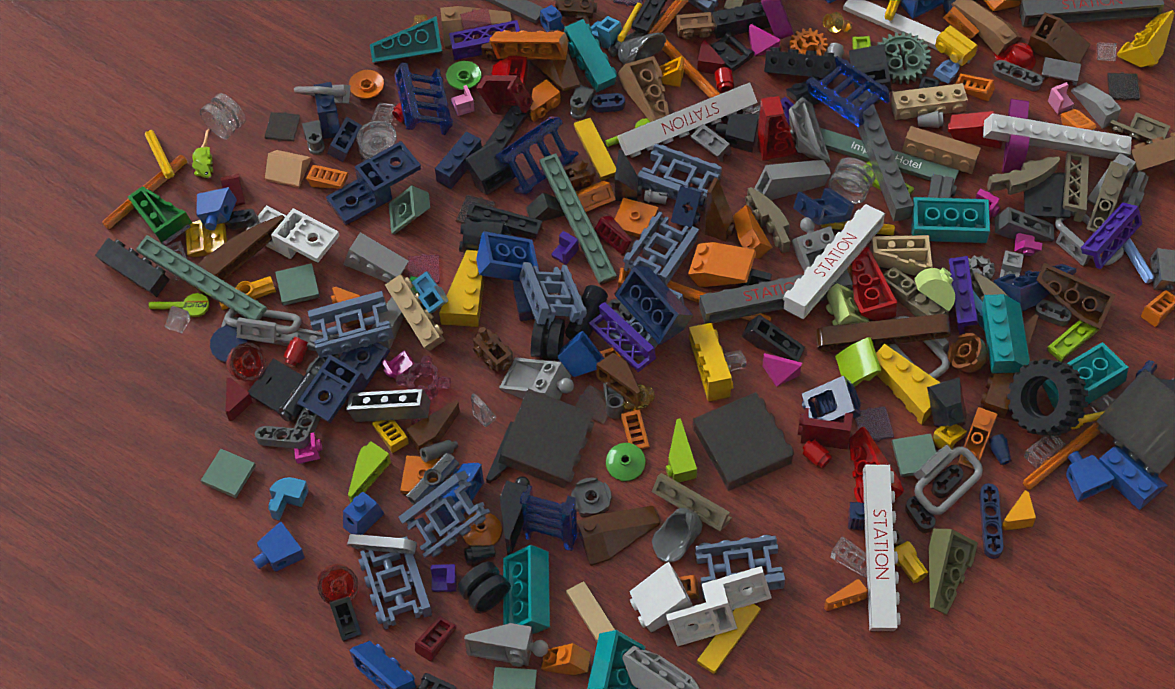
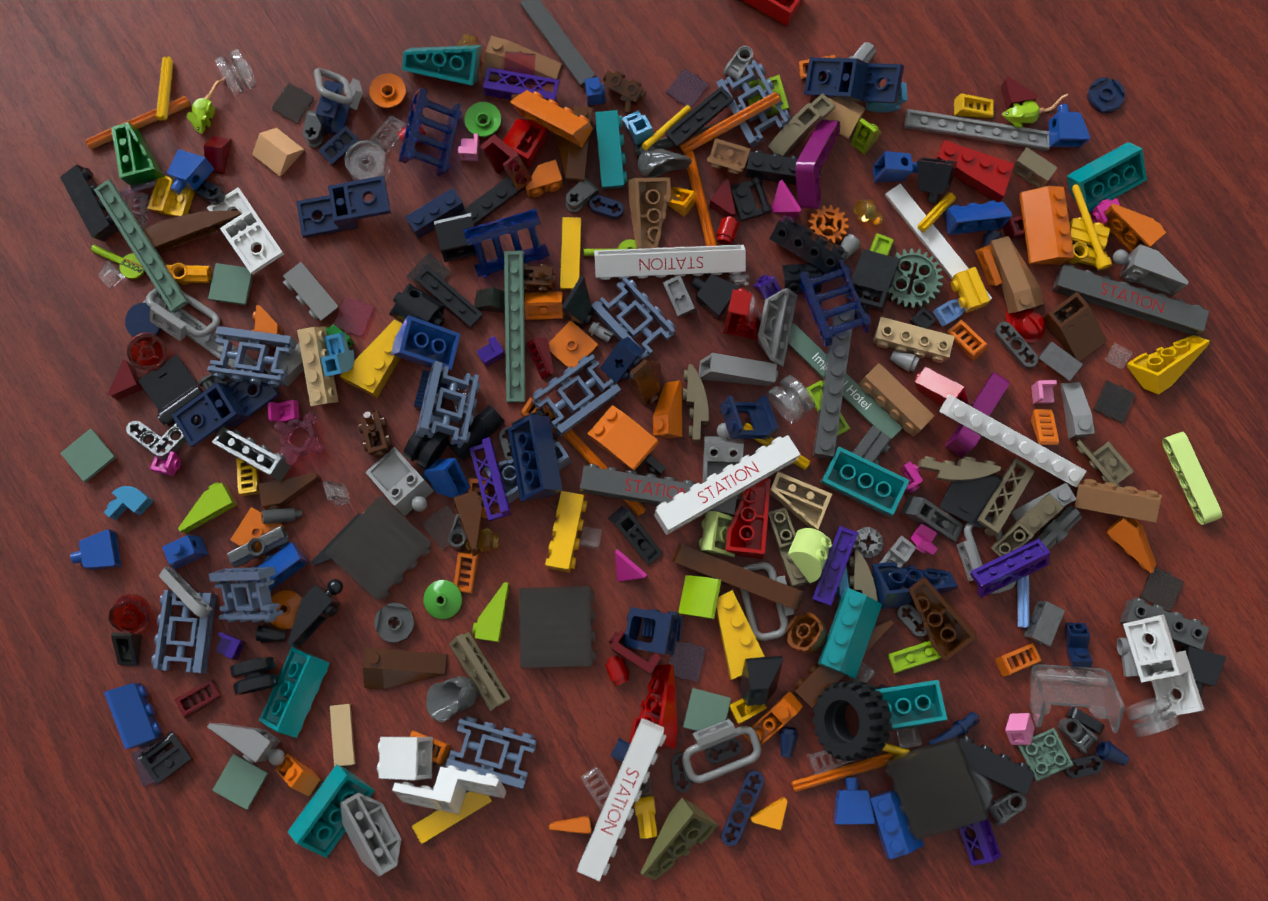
camera: 20 degrees right, 20 degrees up
(295, 351) = (198, 356): red brick -> none
(318, 172) = (301, 176): orange slope -> none
(407, 207) = (365, 247): sand green slope -> none
(566, 517) = (346, 652): clear blue fence -> none

